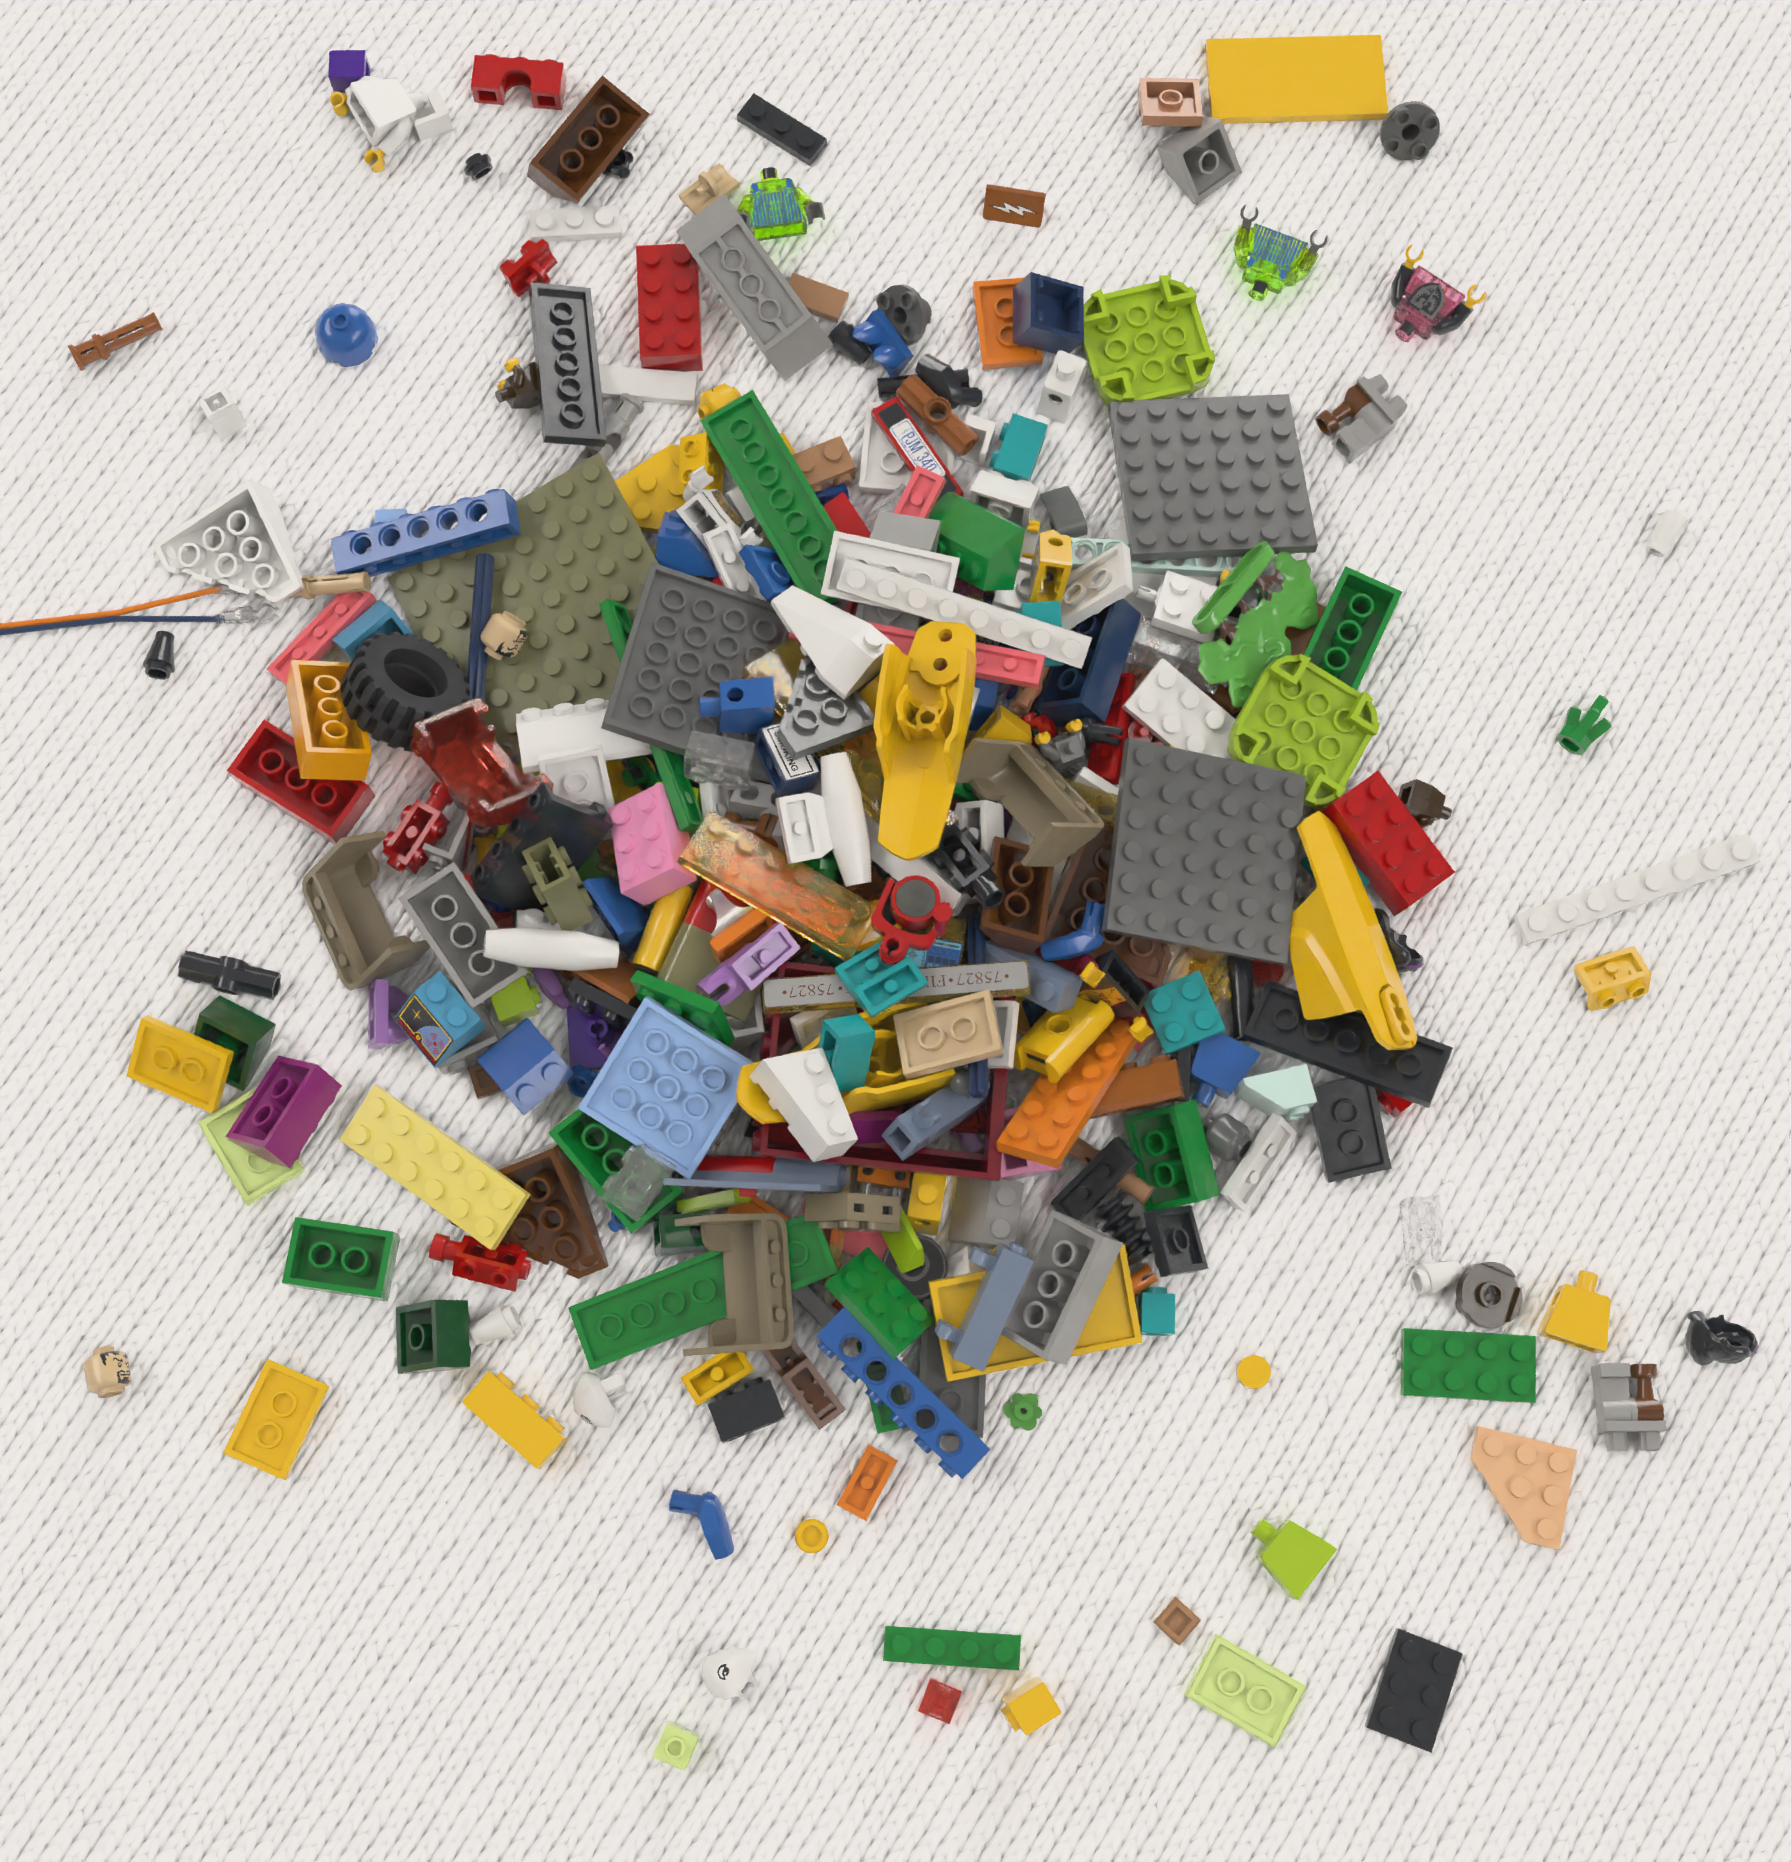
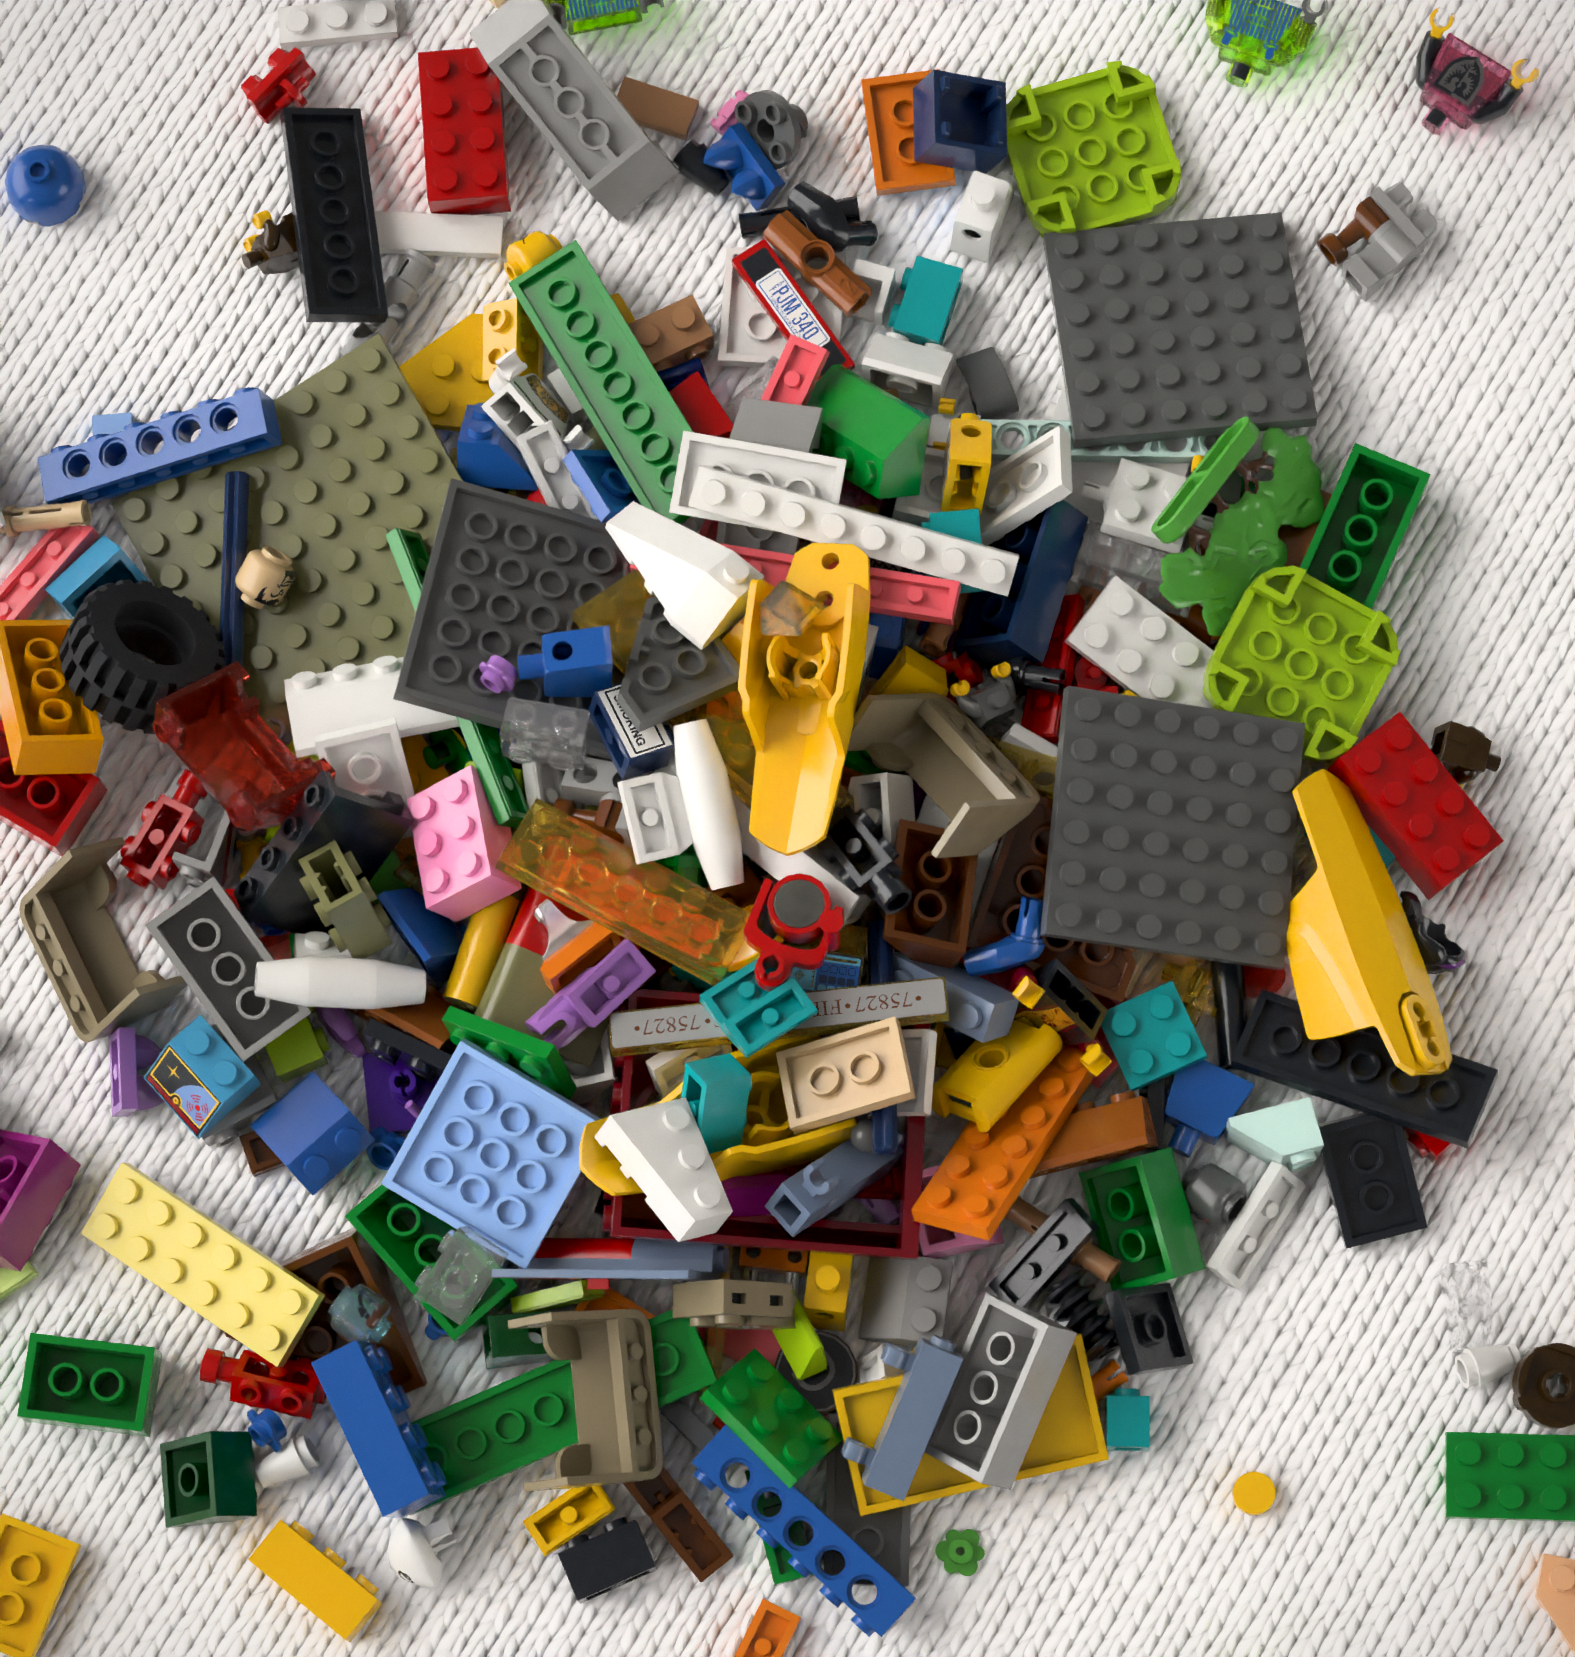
camera: 10 degrees right, 0 degrees up
(480, 1298) = (266, 1429): none -> blue plate
(558, 1211) = (360, 1314): none -> clear light blue head
(570, 1302) = (380, 1429): none -> blue brick
(684, 712) = (498, 674): none -> medium lavender plate
(870, 304) = (726, 114): none -> bright pink piece
(913, 670) = (788, 611): none -> clear yellow slope

